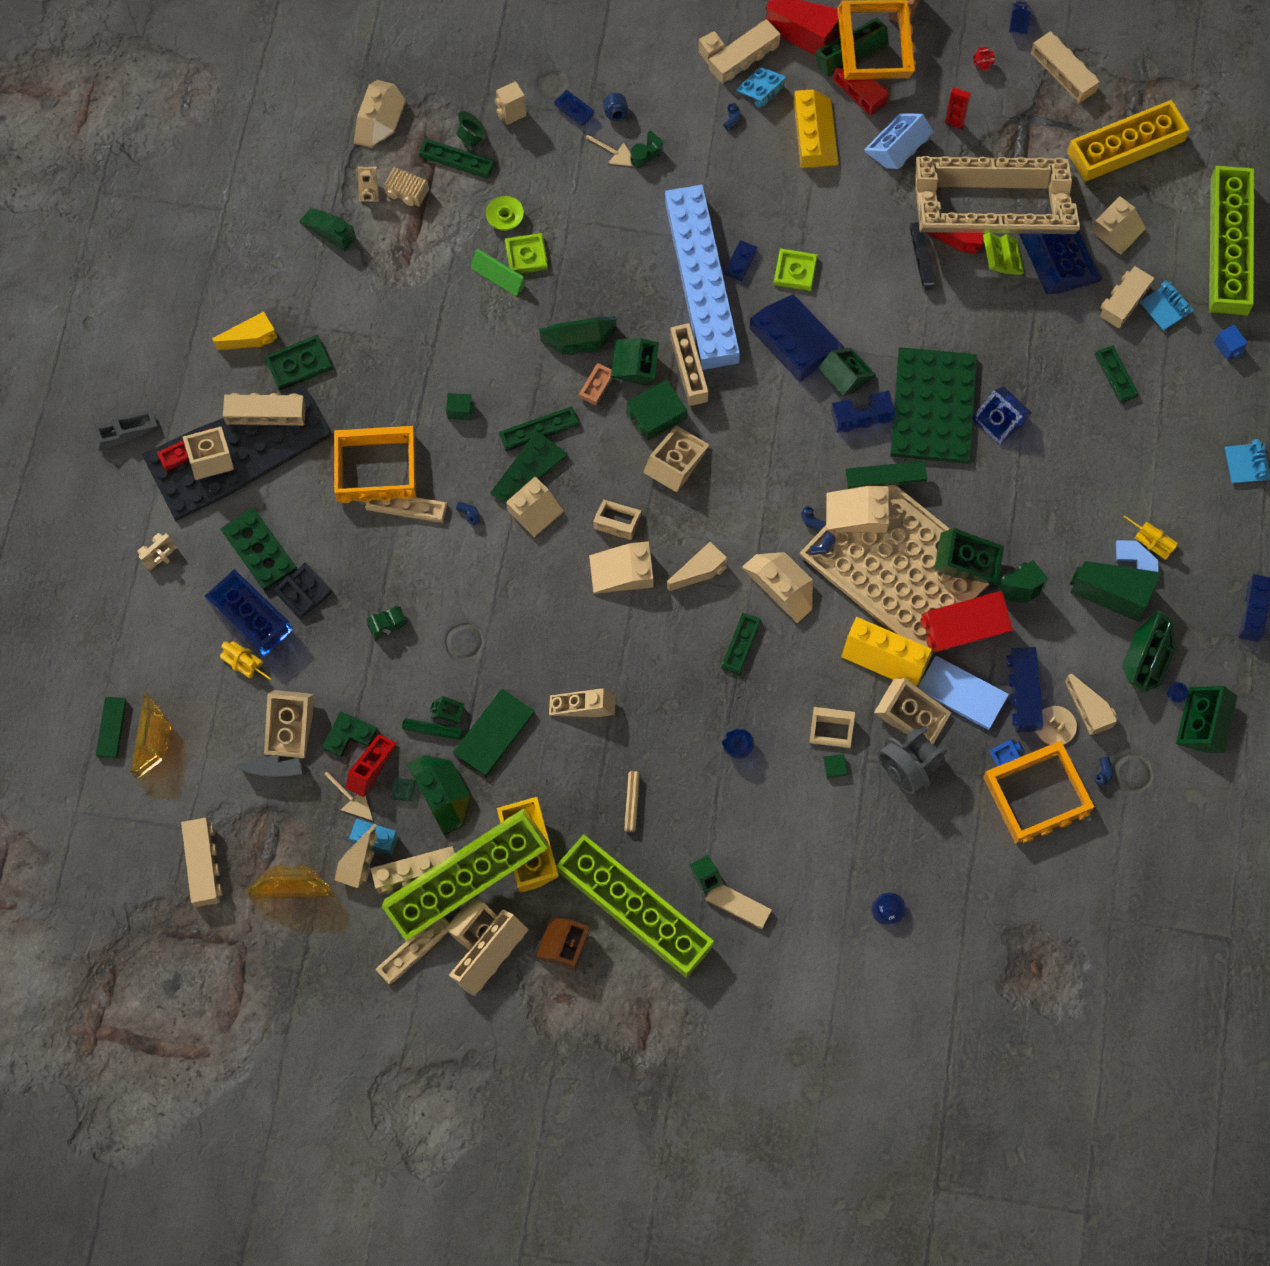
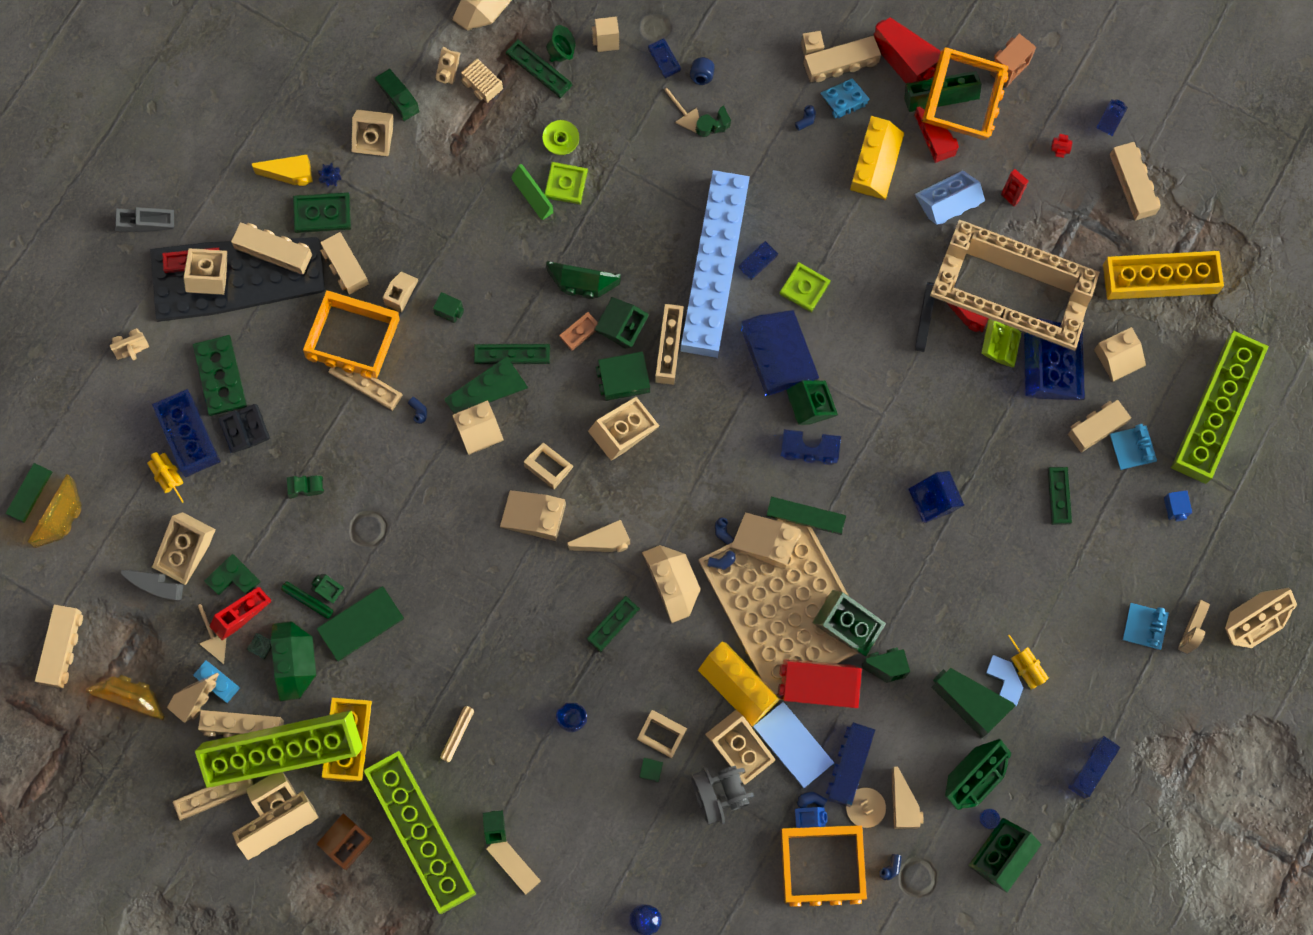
camera: 15 degrees right, 5 degrees up
(292, 319) = (330, 171): none -> clear blue gear
(318, 271) = (372, 132): none -> tan slope
(340, 401) = (343, 263): none -> tan brick
(406, 408) = (399, 291): none -> tan slope
(583, 704) = (448, 627): tan slope -> none
(933, 405) = (878, 463): dark green plate -> none
(999, 735) = (811, 797): none -> dark blue arm

